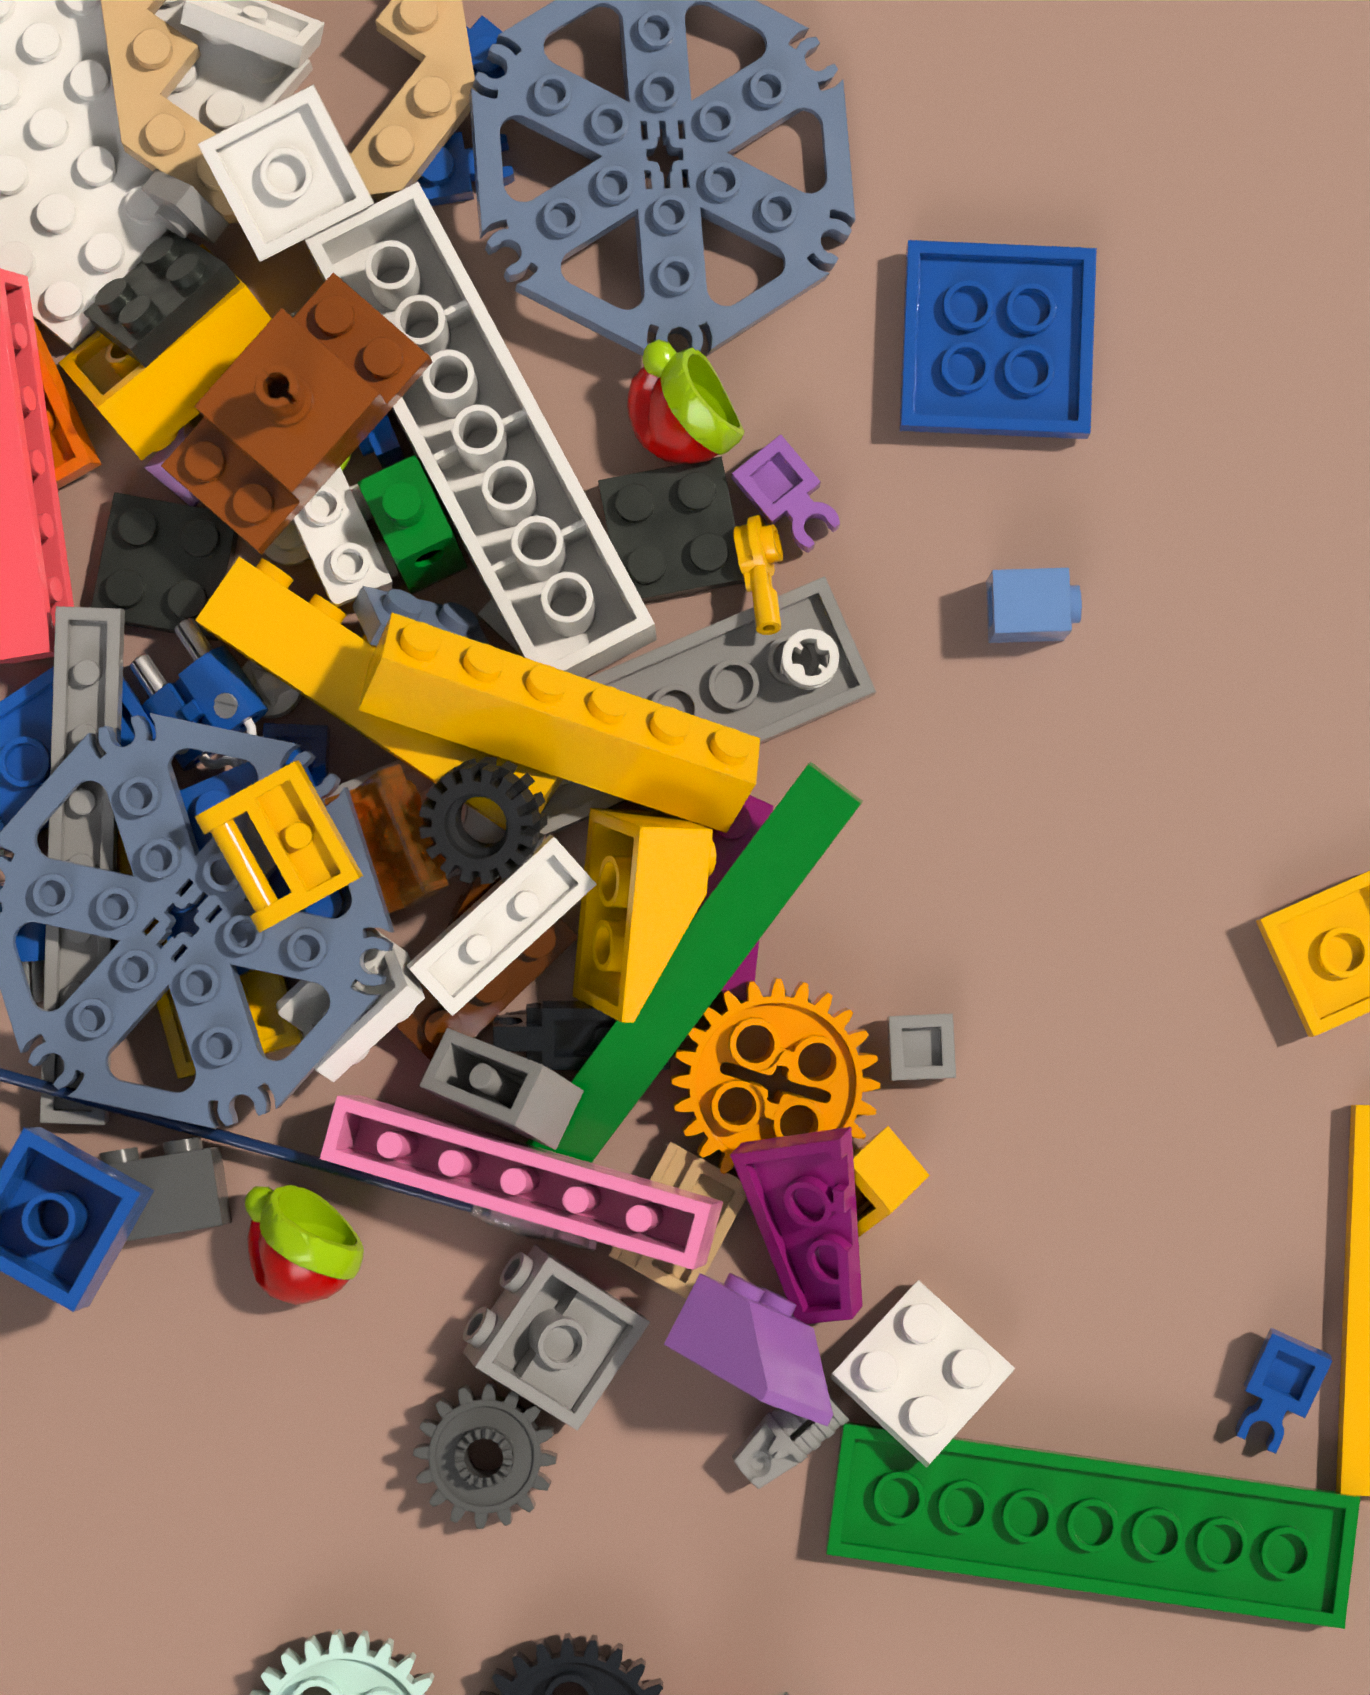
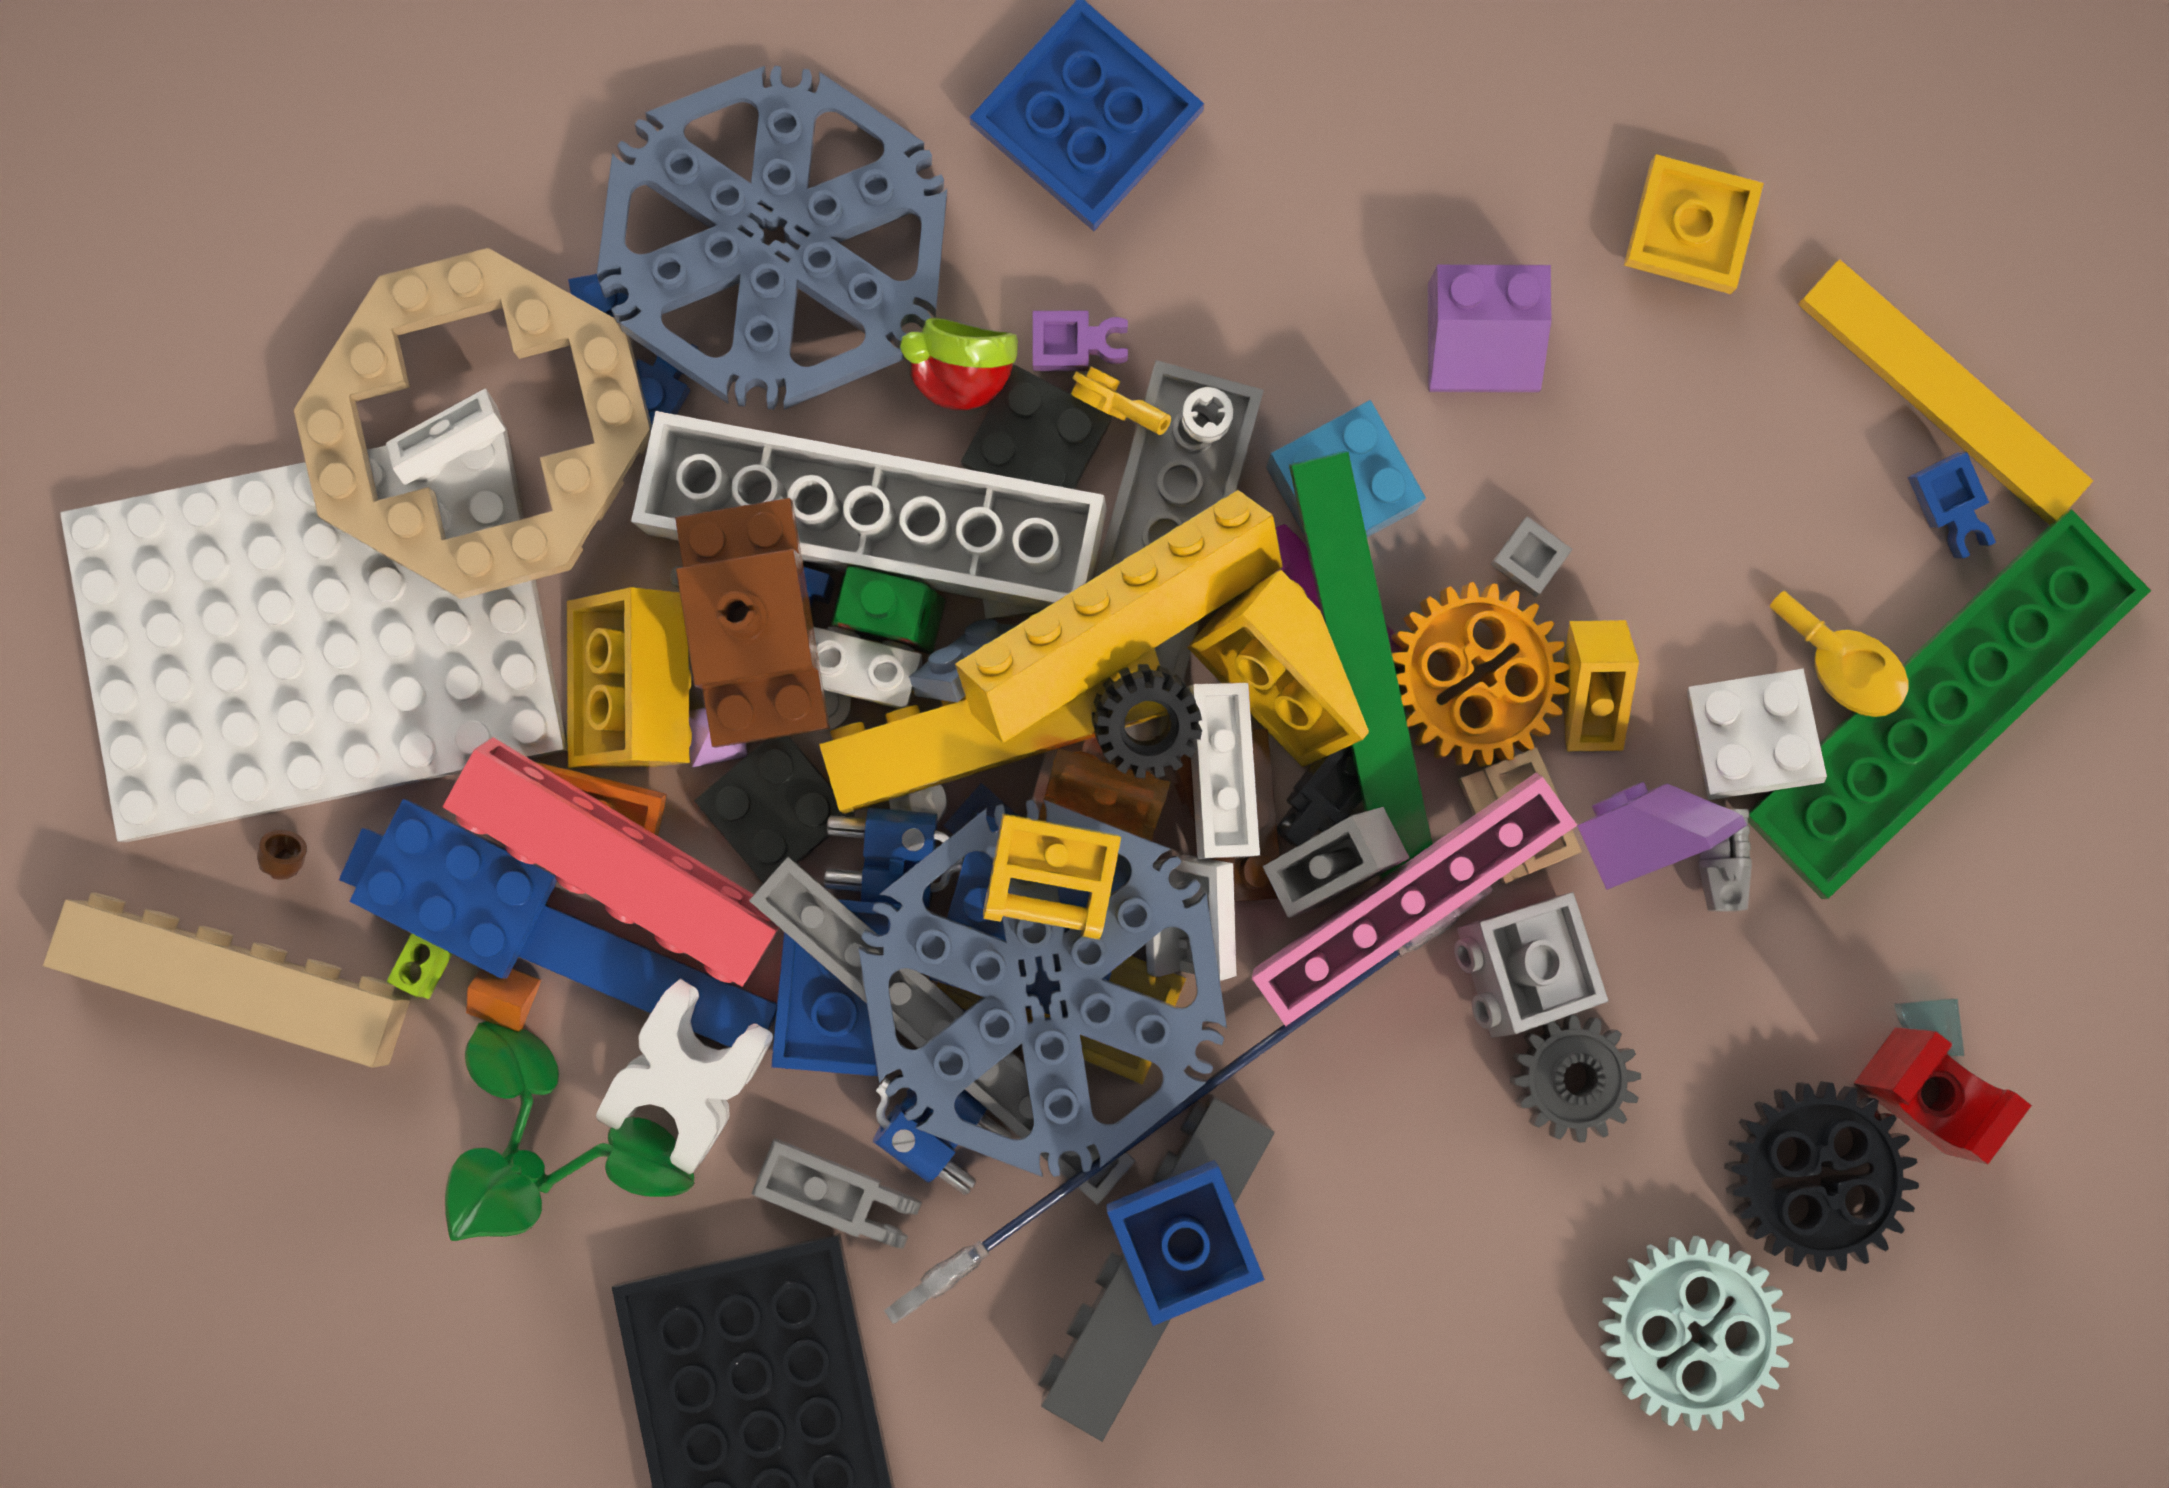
camera: 50 degrees left, 0 degrees up
(160, 297) = (586, 655): pearl dark grey plate -> none
(183, 208) = (535, 589): light grey plate -> none
(286, 173) = (575, 494): white plate -> none
(299, 1244) = (1329, 1091): lime piece -> none
(808, 1218) = (1592, 724): magenta wing -> none
(879, 838) = (1381, 474): none -> dark azure brick
(1031, 605) = (1288, 238): medium blue brick -> none
(1055, 1409) = (1848, 663): none -> yellow piece
(1095, 845) = (1488, 327): none -> medium lavender slope

